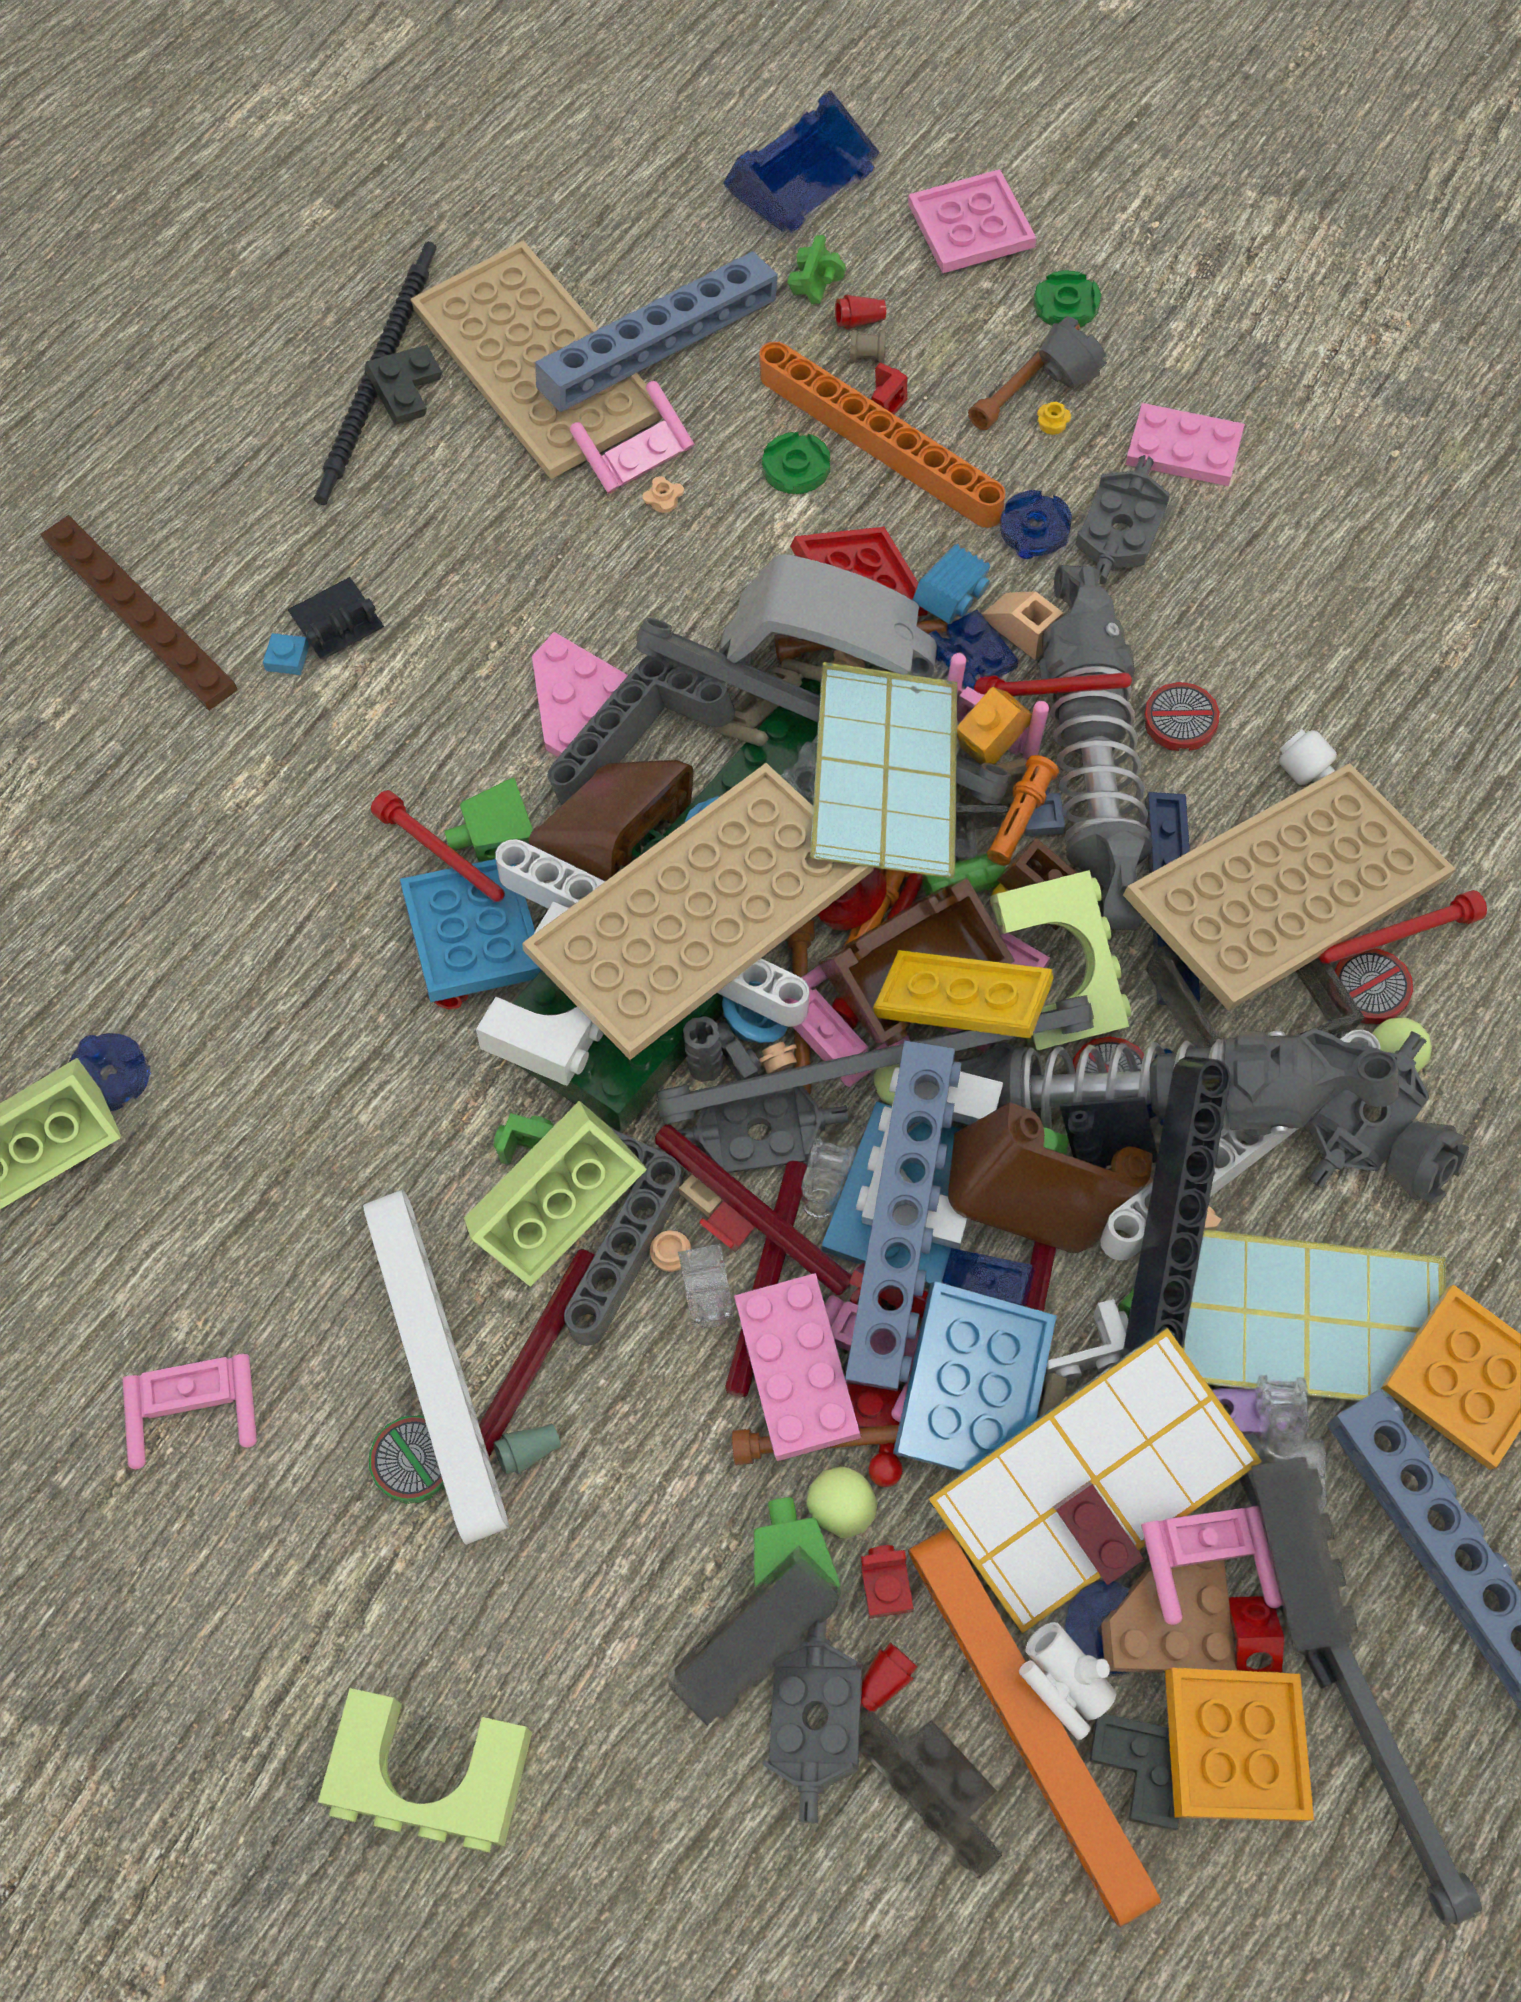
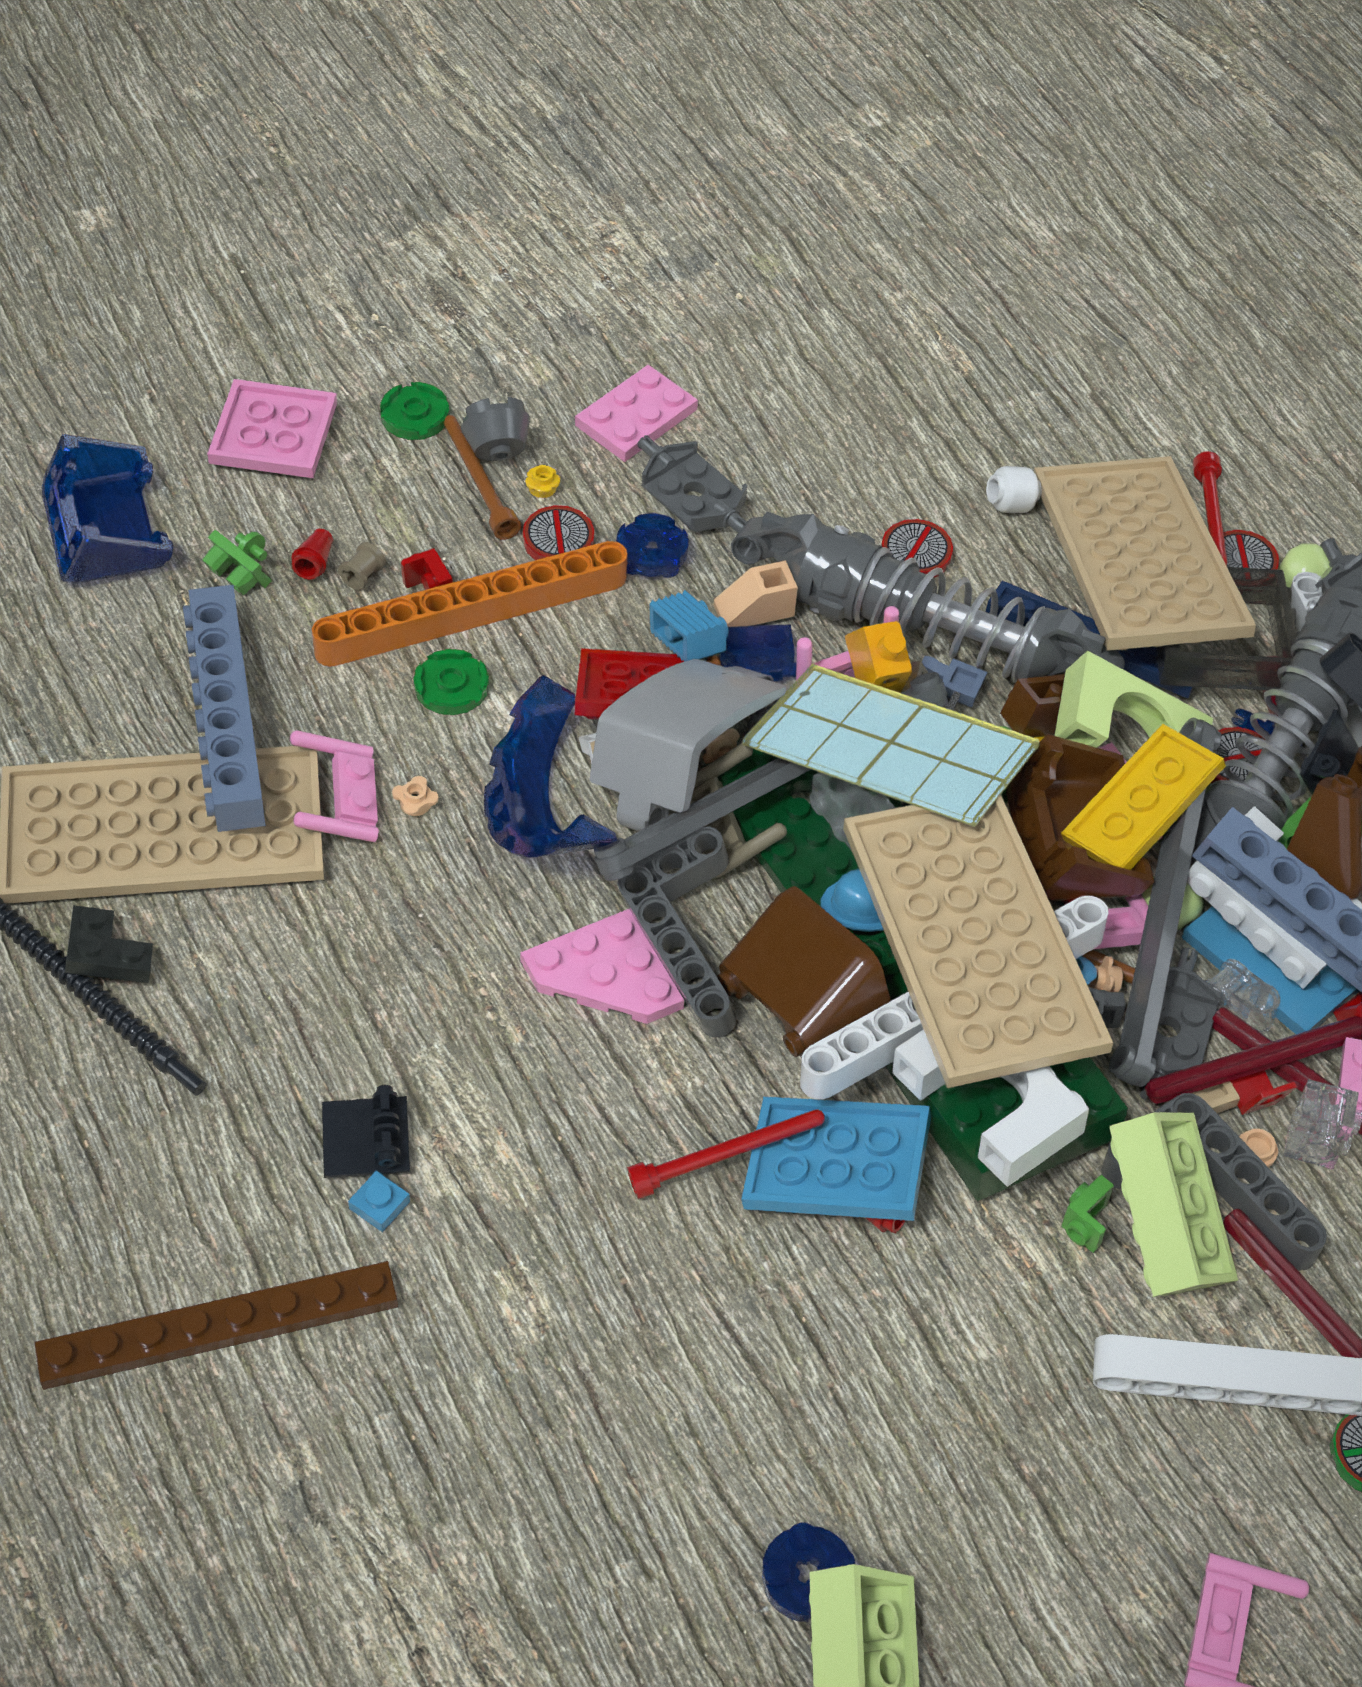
camera: 70 degrees left, 10 degrees down
(491, 820) = (724, 1092): bright green torso -> none
(715, 558) = (519, 791): none -> clear blue windscreen
(1003, 454) = (556, 531): none -> tile
(1027, 795) = (957, 674): orange pin -> none
(1055, 685) = (868, 595): red piece -> none

